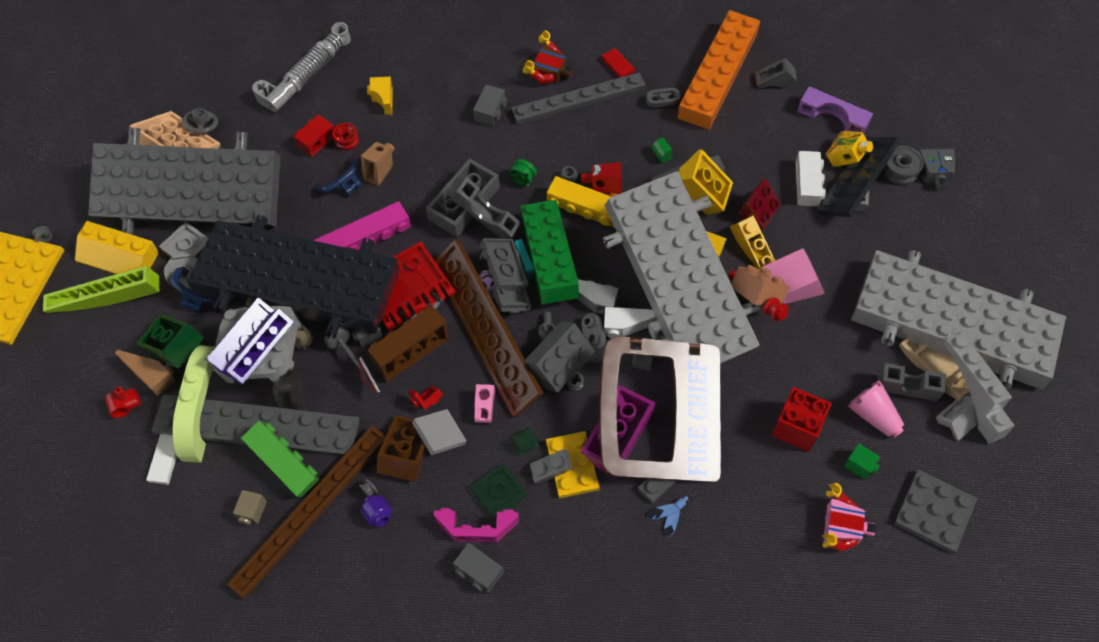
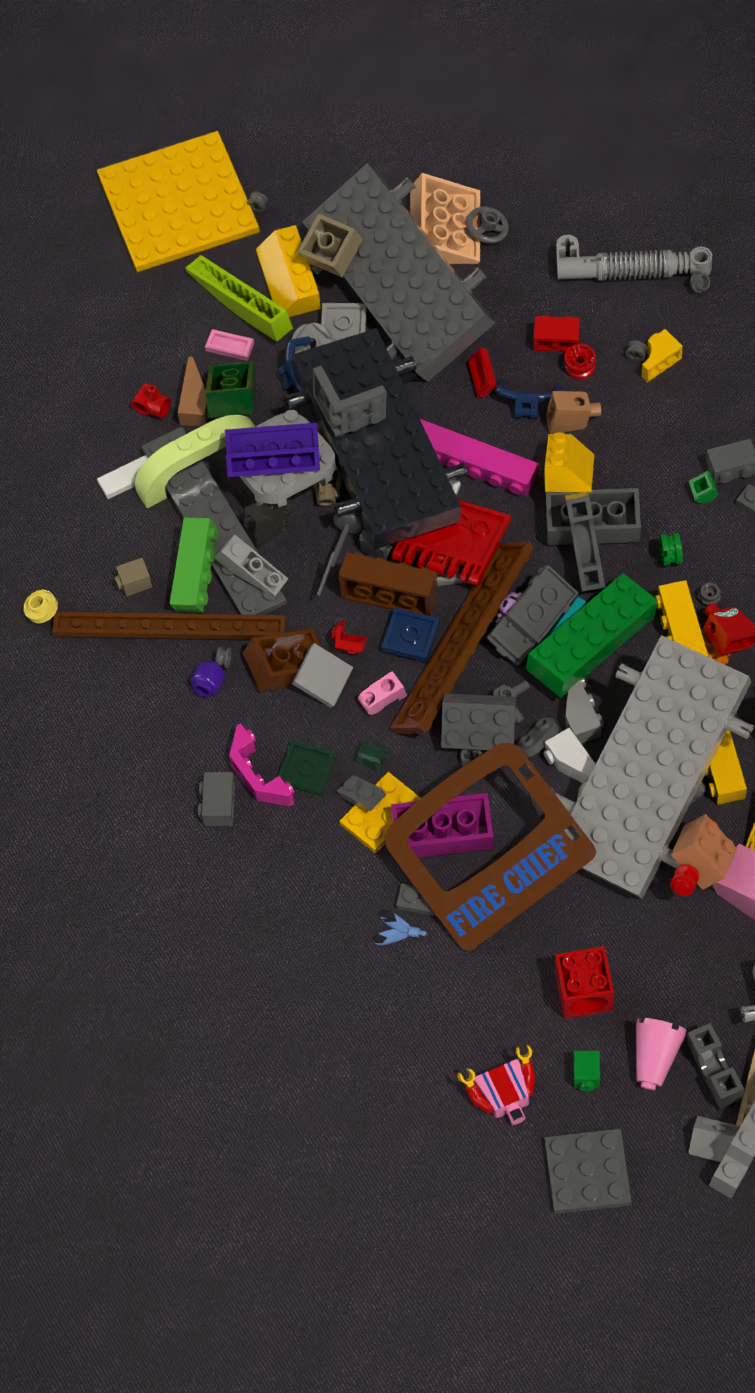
camera: 60 degrees right, 0 degrees up
(127, 205) = (330, 245): none -> dark tan brick
(129, 324) = (229, 345): none -> bright pink tile
(213, 591) = (40, 606): none -> light yellow plate
(260, 278) = (351, 412): none -> dark grey bracket
(301, 191) = (482, 373): none -> red tile
(314, 421) = (250, 566): none -> light grey slope
(352, 44) = (699, 282): none -> dark grey plate
(367, 103) = (636, 351): none -> dark grey bush
(415, 187) = (568, 464): none -> yellow slope
(453, 357) = (410, 634): none -> dark blue plate
(494, 130) = (703, 488): none -> green brick

